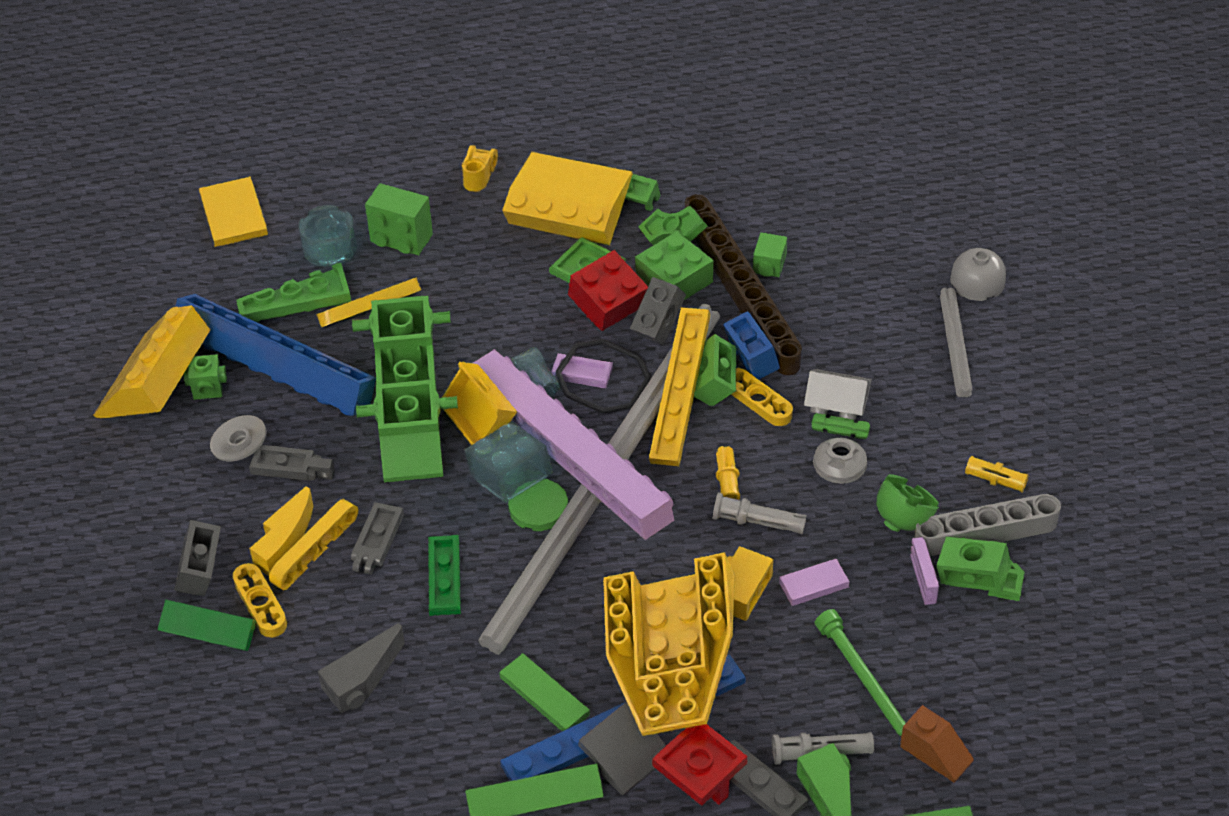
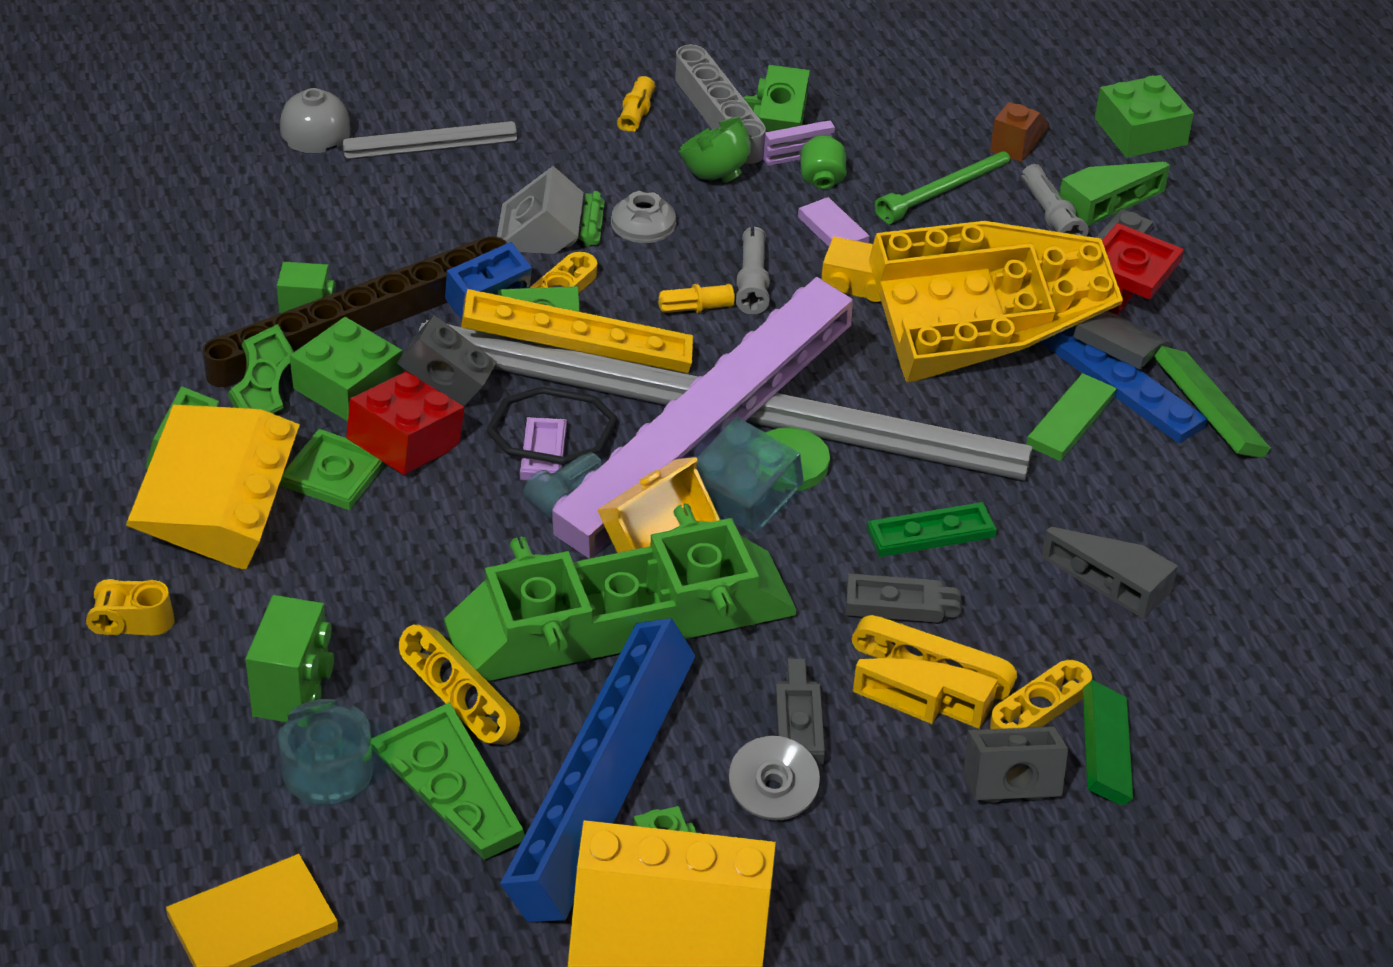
camera: 105 degrees left, 5 degrees down
(893, 583) = (823, 162): none -> bright green head

